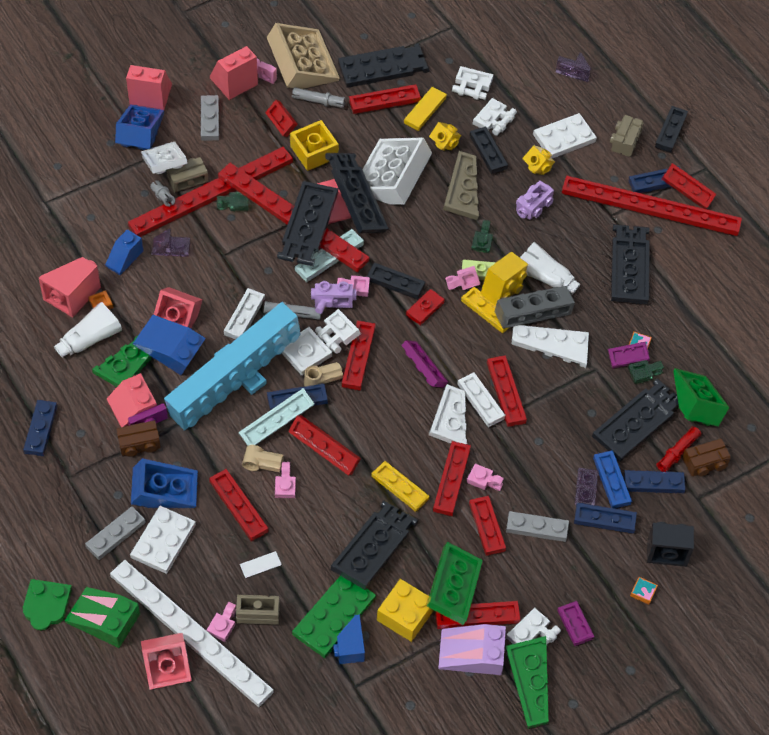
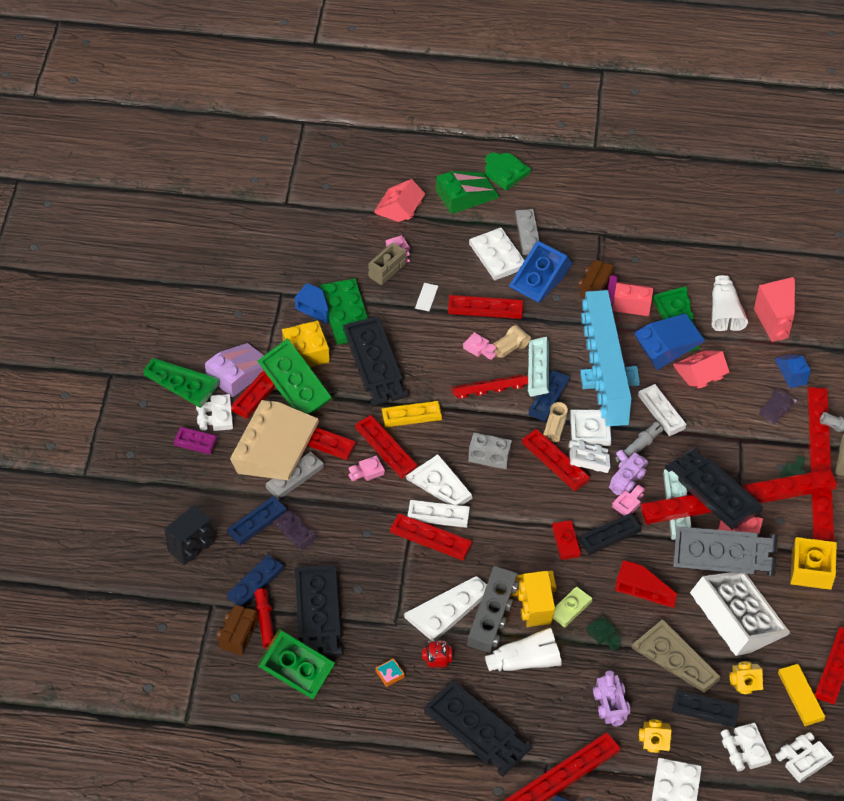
camera: 130 degrees right, 5 degrees down
(40, 428) = (659, 237): dark blue plate -> none
(100, 297) = (754, 331): orange tile -> none
(193, 634) = (409, 229): white plate -> none
(392, 400) = (490, 450): none -> light grey brick
(424, 240) = (641, 583): none -> red slope
(424, 364) = (506, 497): magenta plate -> none
(466, 278) = (568, 584): bright pink plate -> none
(526, 553) = (273, 441): none -> tan slope
(599, 321) = (437, 654): none -> red head
(612, 479) = (283, 550): blue plate -> none
(628, 354) = (384, 650): magenta plate -> none
(643, 590) = (176, 504): tile -> none
(644, 372) = (358, 649): clear green plate -> none

